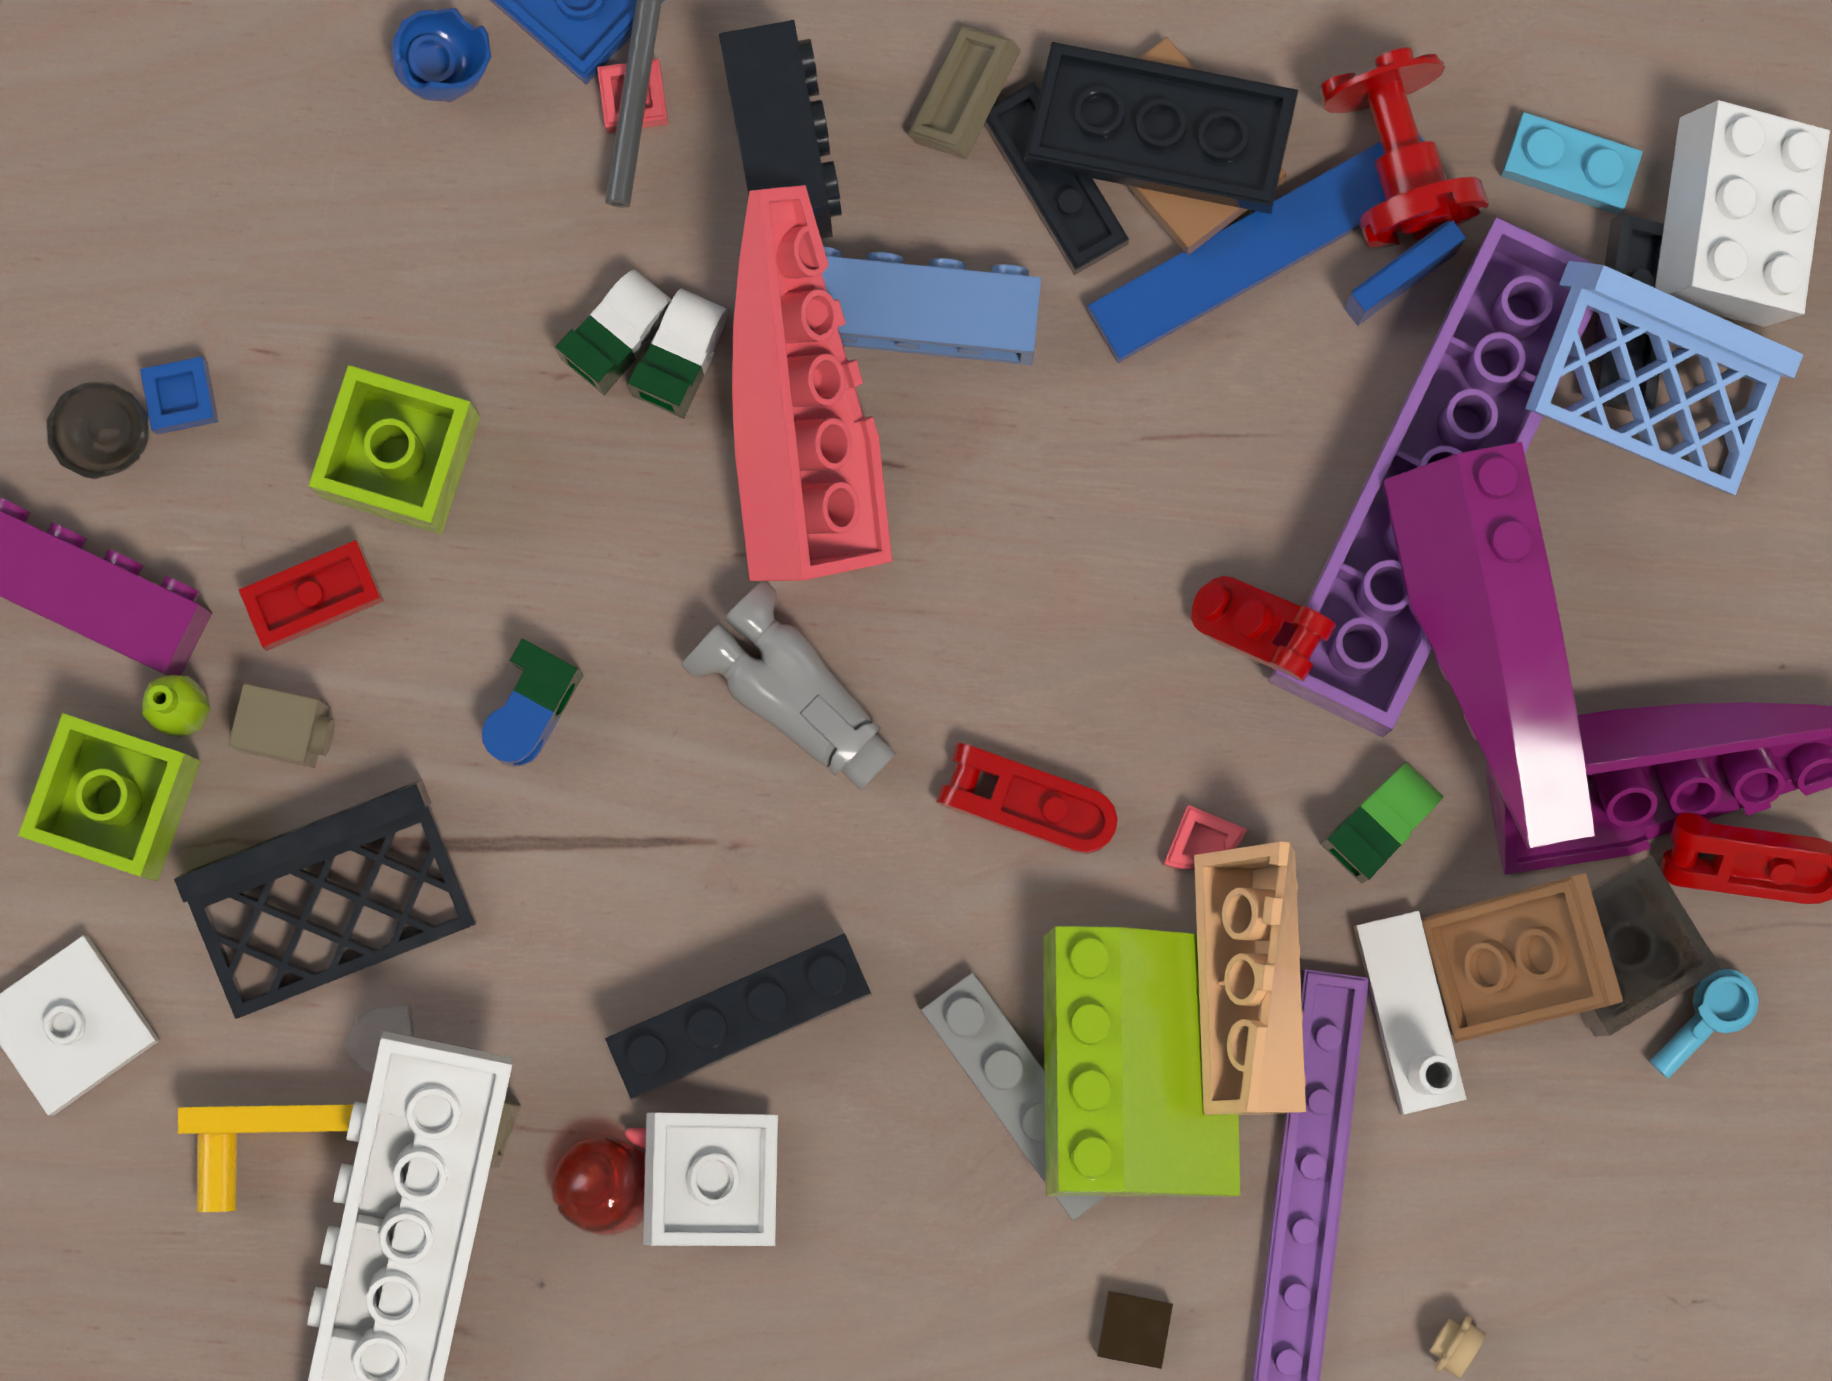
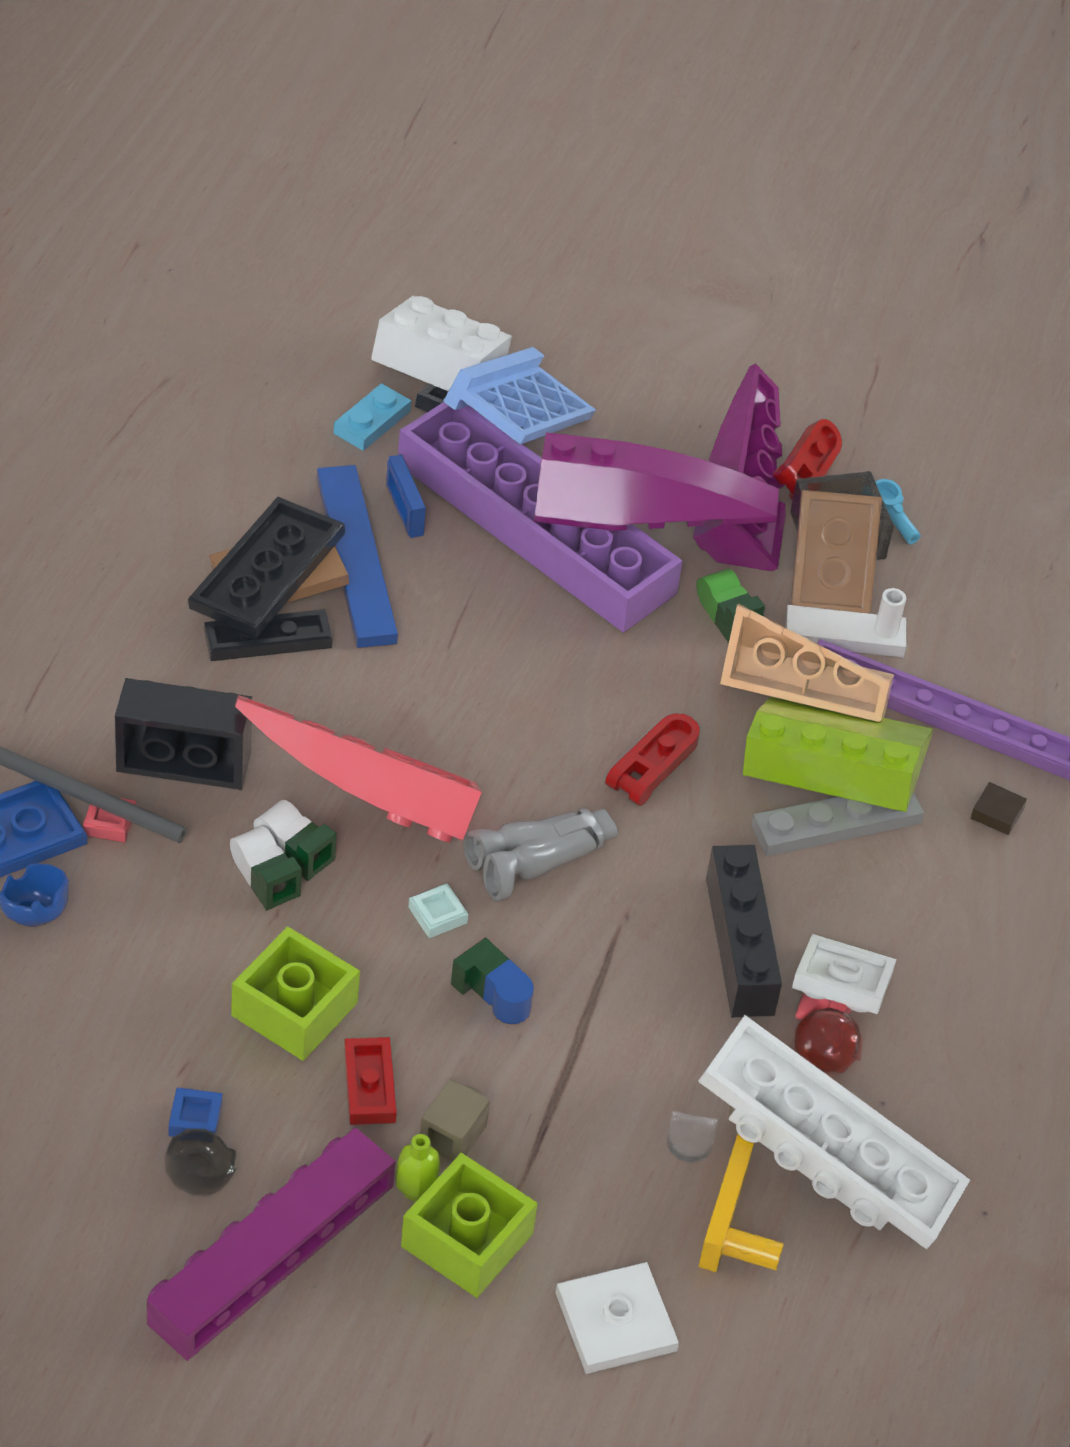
camera: 80 degrees left, 35 degrees down
(305, 847) = (544, 1143): black fence -> none
(639, 587) = (438, 910): none -> light aqua tile
(935, 307) = (332, 698): medium blue brick -> none
(964, 92) = (194, 654): dark tan tile -> none
(1201, 834) = (707, 691): coral tile -> none
(1260, 625) = (596, 602): red plate -> none
(1411, 170) = (352, 465): red piece -> none
(1456, 1345) = (1050, 665): tan plate -> none

